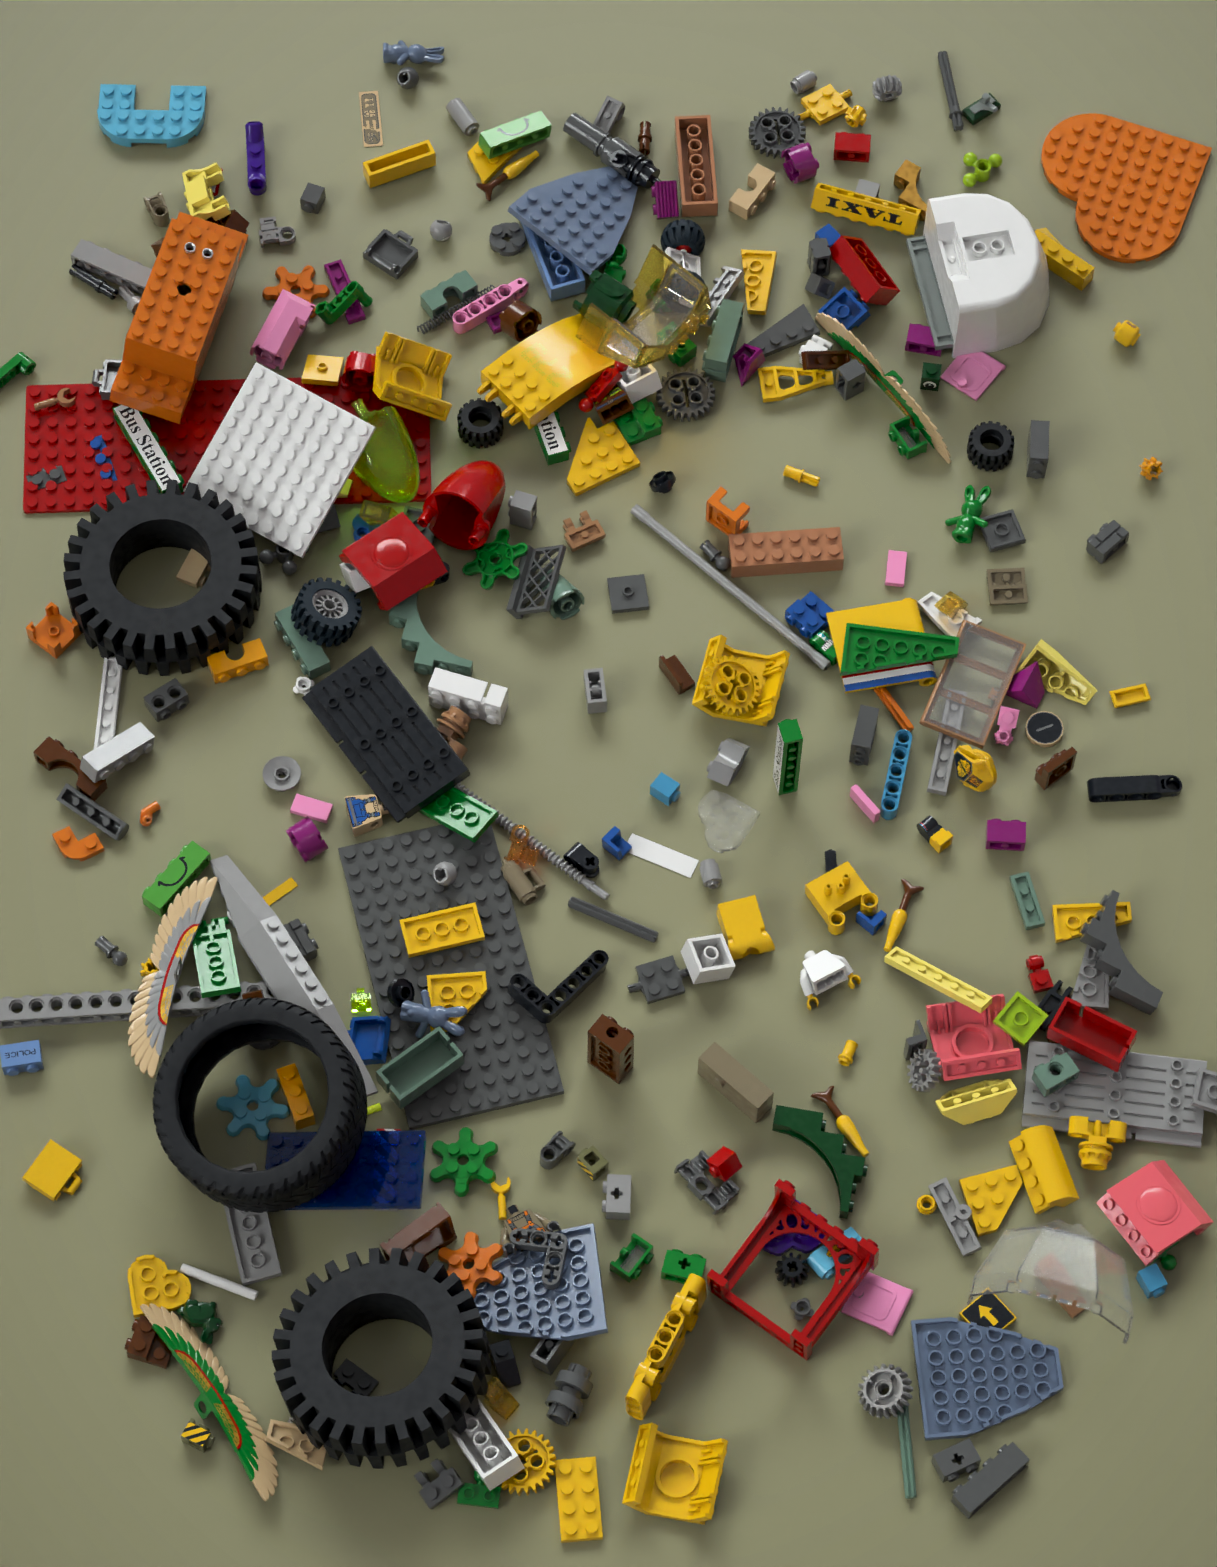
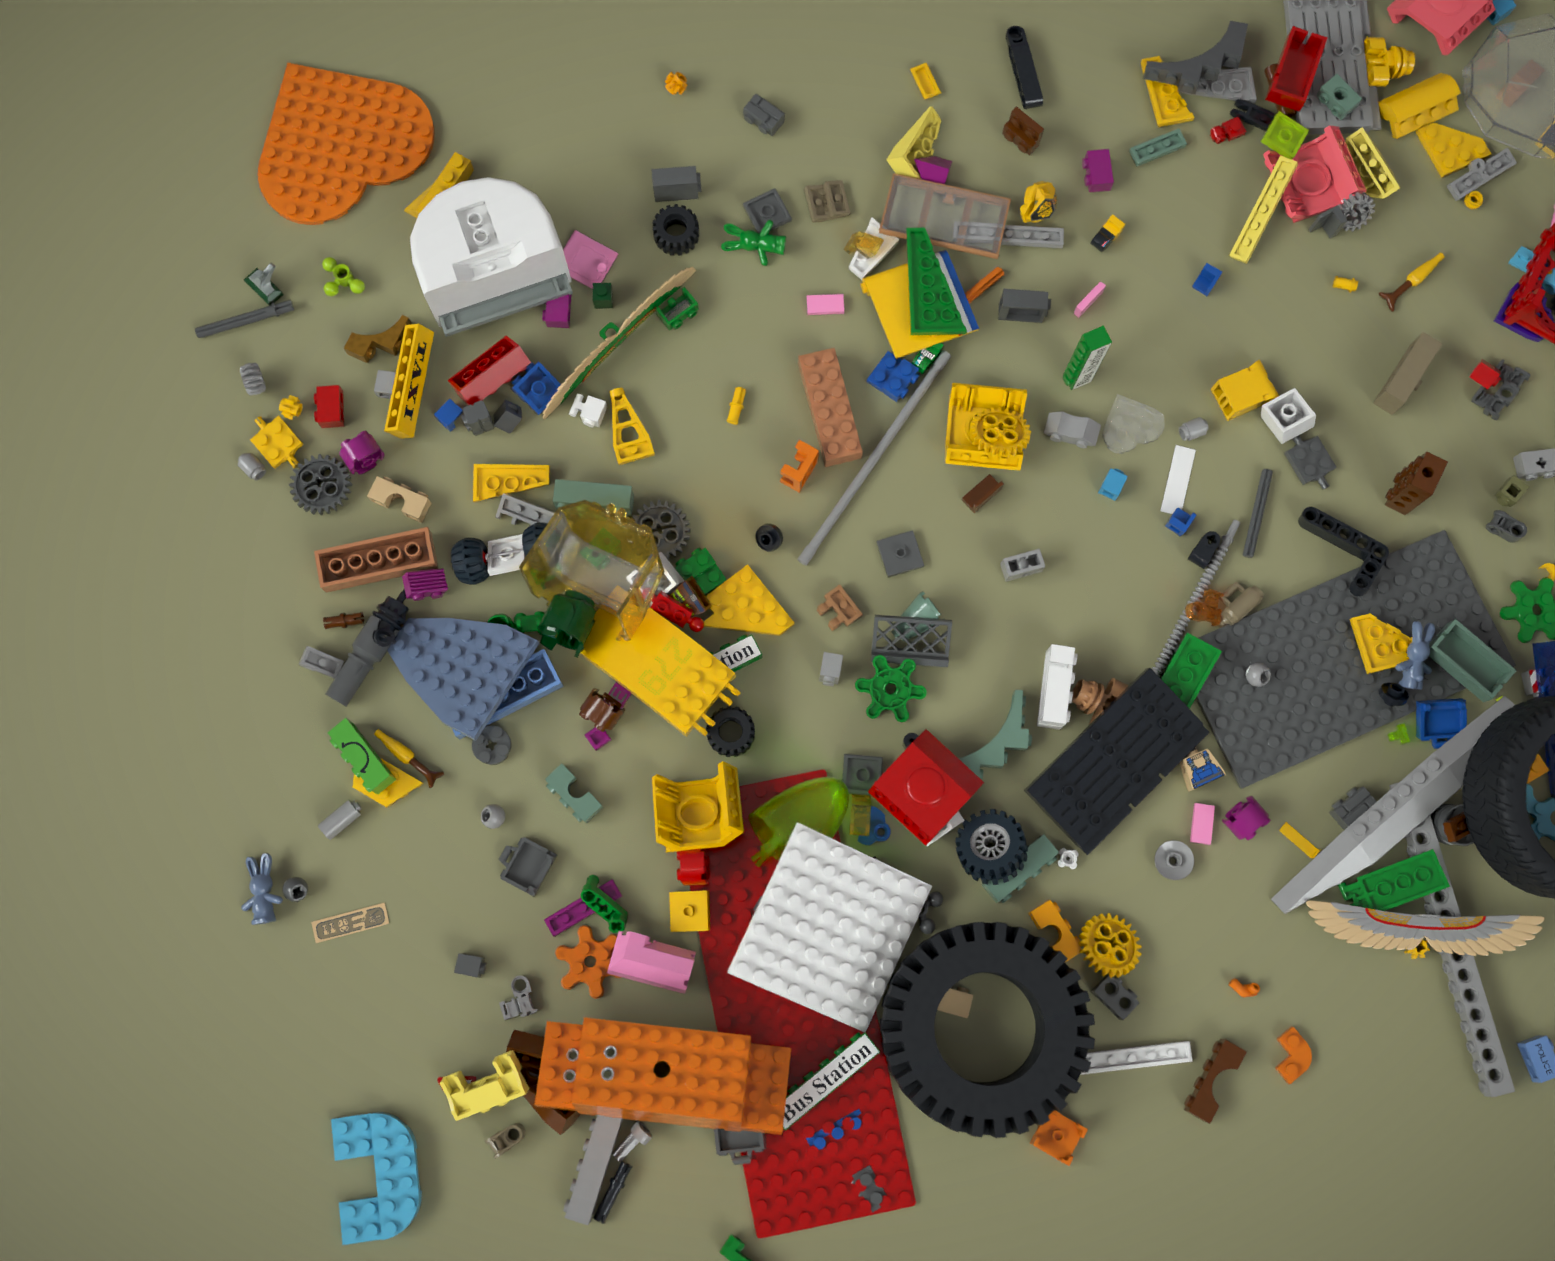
camera: 100 degrees left, 15 degrees up
(53, 401) = (777, 1201): medium nougat piece -> none
(93, 812) = (1258, 1046): dark grey brick -> none
(117, 752) = (1194, 1033): brick -> none
(118, 957) = (1409, 984): dark grey pin -> none
(178, 875) = (1312, 943): bright green brick -> none
(229, 709) = (1109, 945): none -> yellow gear
(255, 157) = (425, 1039): dark purple plate -> none
(399, 163) = (414, 876): yellow brick -> none
(442, 929) = (1315, 667): yellow plate -> none
(452, 312) = (584, 782): dark grey piece -> none
(465, 505) = (840, 721): red windscreen -> none
(483, 308) = (559, 726): bright pink piece -> none
(722, 562) = (849, 467): dark grey pin -> none
(748, 361) = (613, 472): magenta slope -> none
(787, 332) = (569, 445): dark grey wing -> none
(810, 1129) = (1459, 269): dark green arch -> none
(823, 972) = (1275, 313): white torso -> none
(824, 359) = (603, 395): reddish brown tile -> none
(839, 892) = (1188, 311): yellow piece -> none
(850, 379) = (622, 368): dark grey brick -> none
(896, 782) = (1046, 280): dark azure beam -> none
(900, 916) = (1198, 256): yellow piece -> none
(1007, 720) = (980, 180): bright pink brick -> none
(1044, 729) = (975, 152): black tile -> none
(1126, 333) = (523, 119): yellow head -> none

